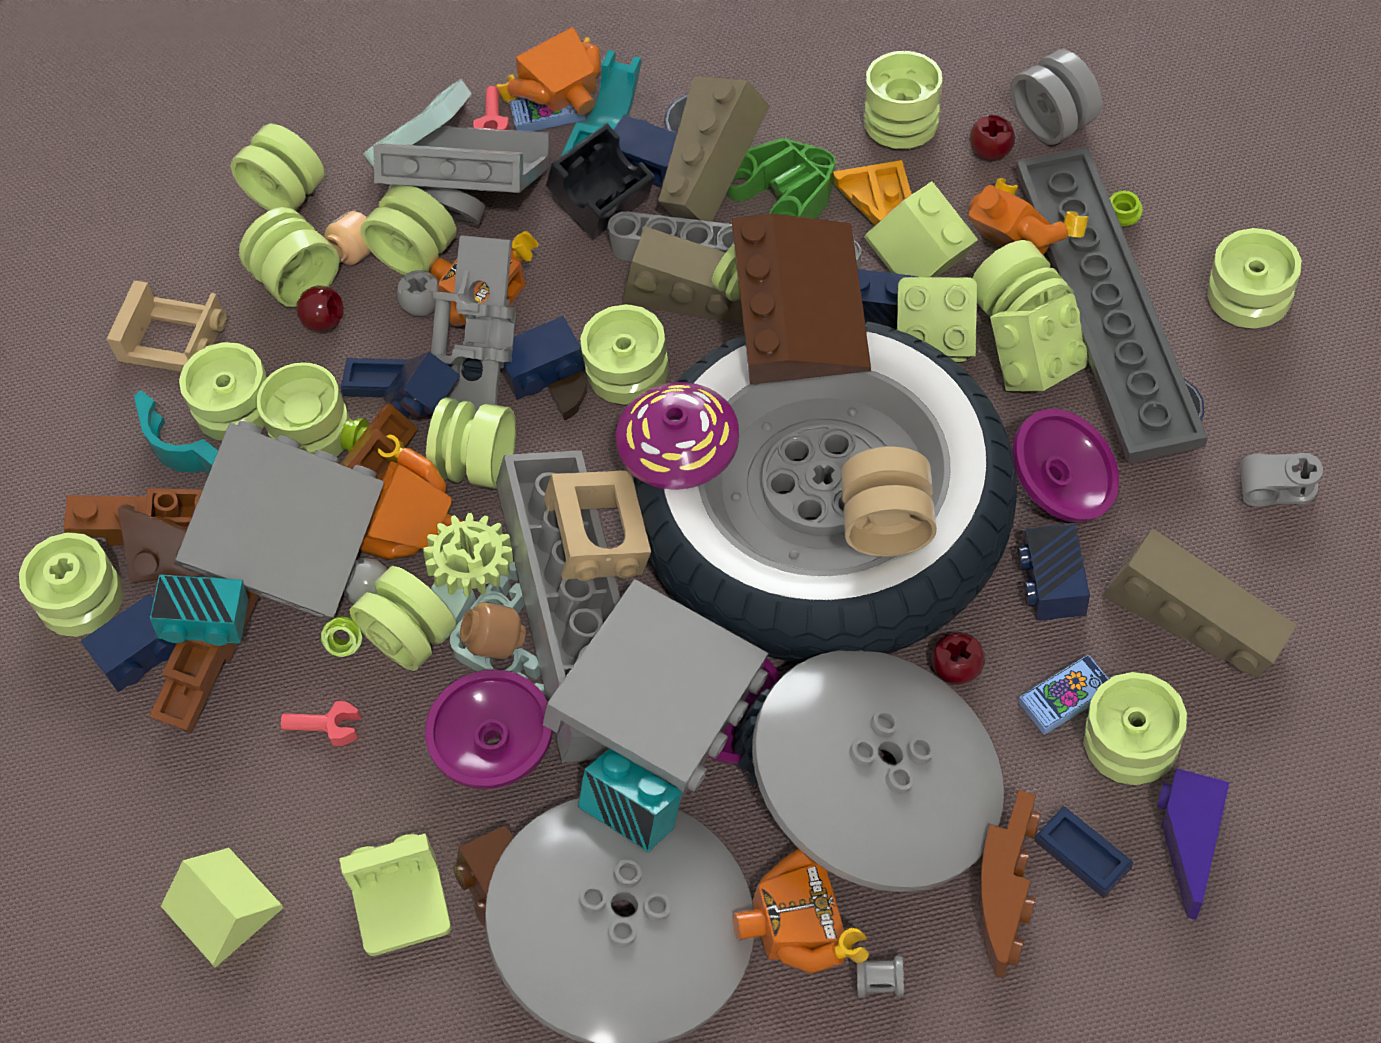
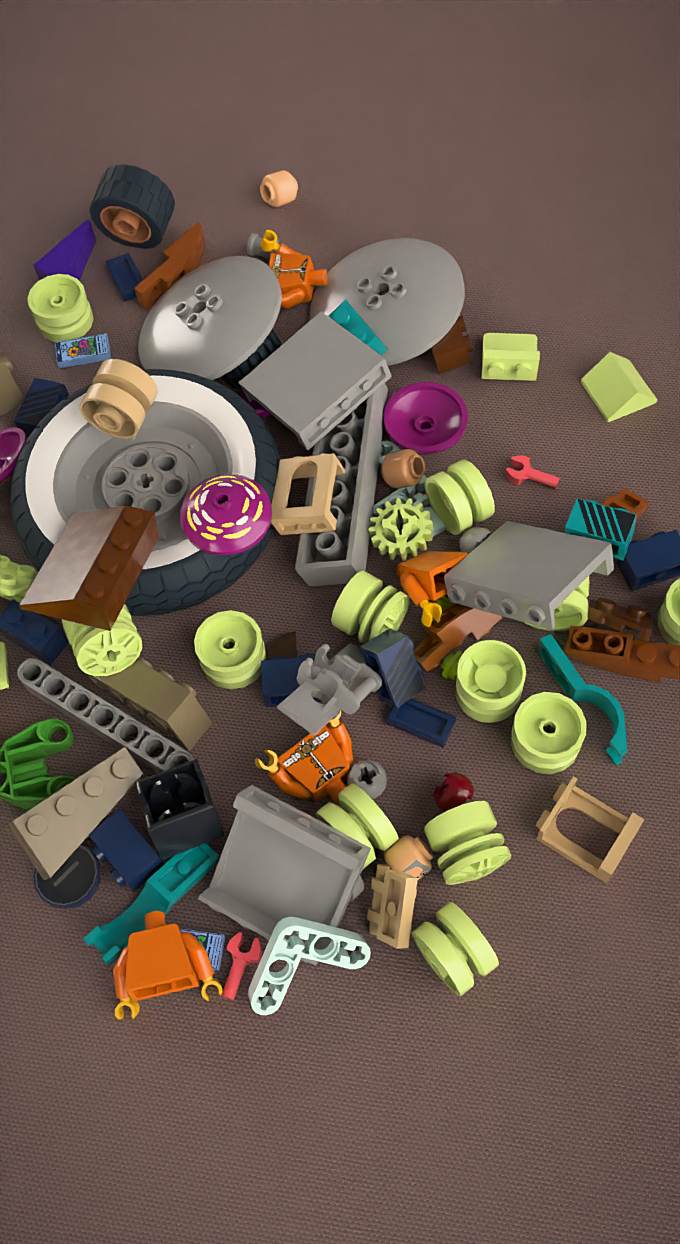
camera: 160 degrees left, 5 degrees up
(337, 646) = (502, 515): lime plate -> none
(346, 181) = (392, 906): none -> tan plate
(1126, 932) = (132, 206): none -> black wheel

